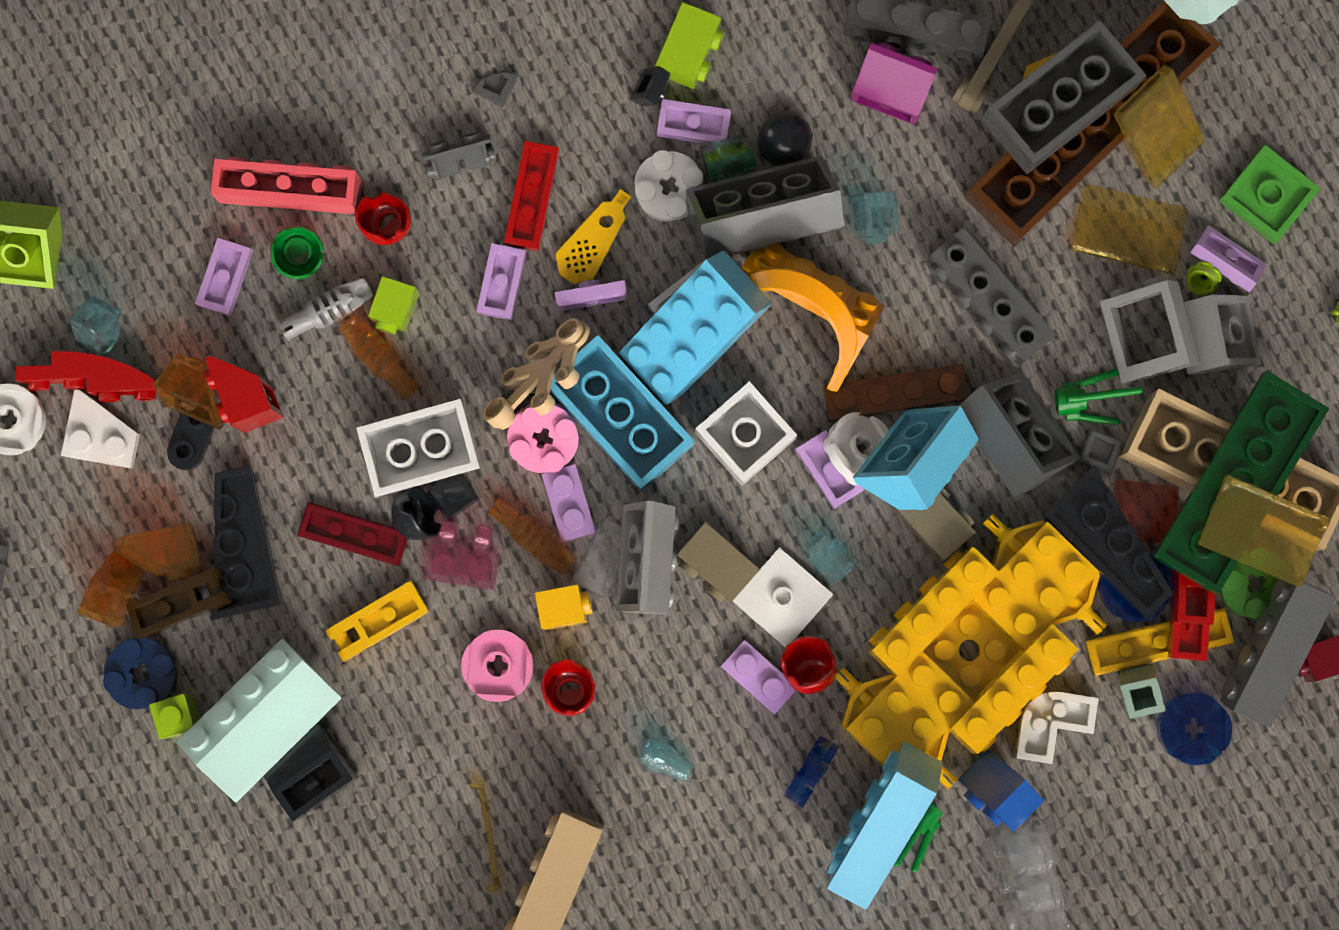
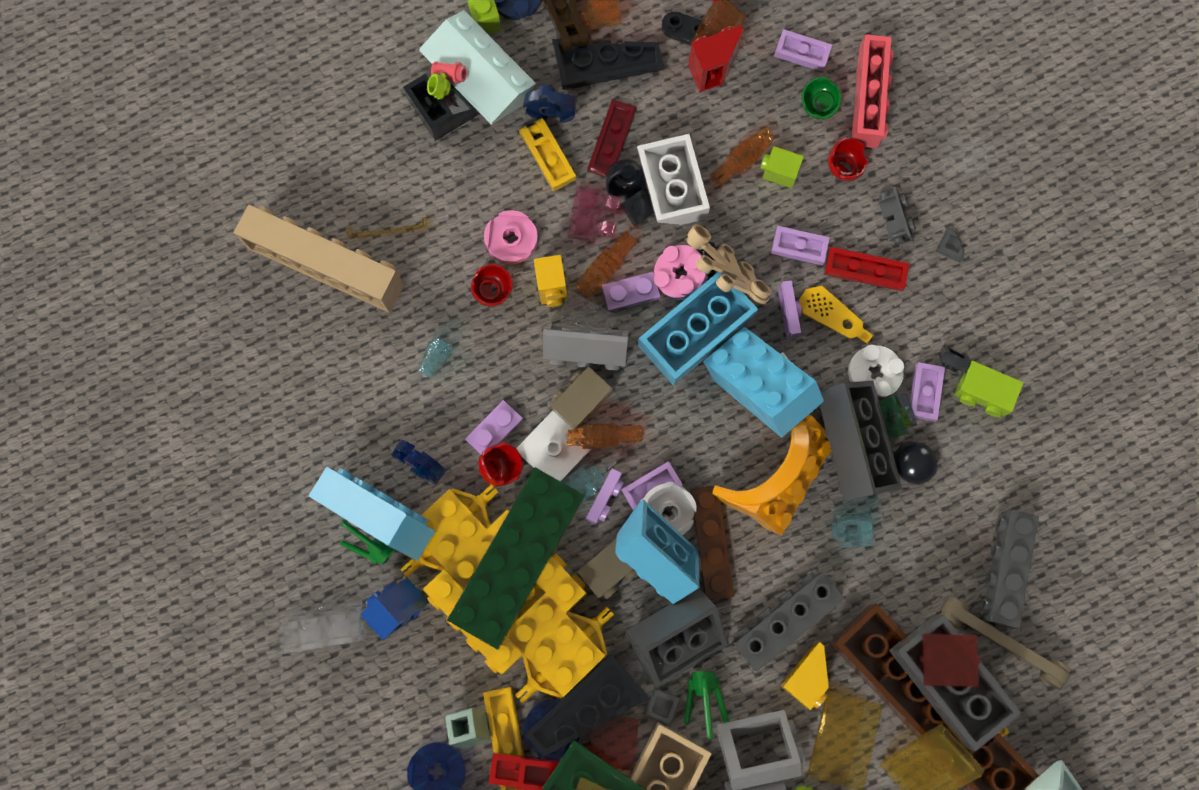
camera: 90 degrees right, 5 degrees down
(272, 756) = (454, 72): none -> coral pin
(293, 770) = (438, 85): none -> lime plate
(312, 618) = (550, 103): none -> dark blue plate
(327, 308) = (779, 121): light grey hinge -> none
(745, 433) = (680, 421): white brick -> none
(765, 532) = (603, 435): none -> clear orange hinge
(859, 535) = (610, 487): none -> lavender plate
(893, 82) = (963, 547): magenta slope -> none
(936, 634) = (516, 558): none -> dark green plate
(1042, 101) = (950, 660): none -> clear red piece
(1045, 715) = (453, 651): white plate -> none
(1059, 271) = (809, 678): none -> yellow slope

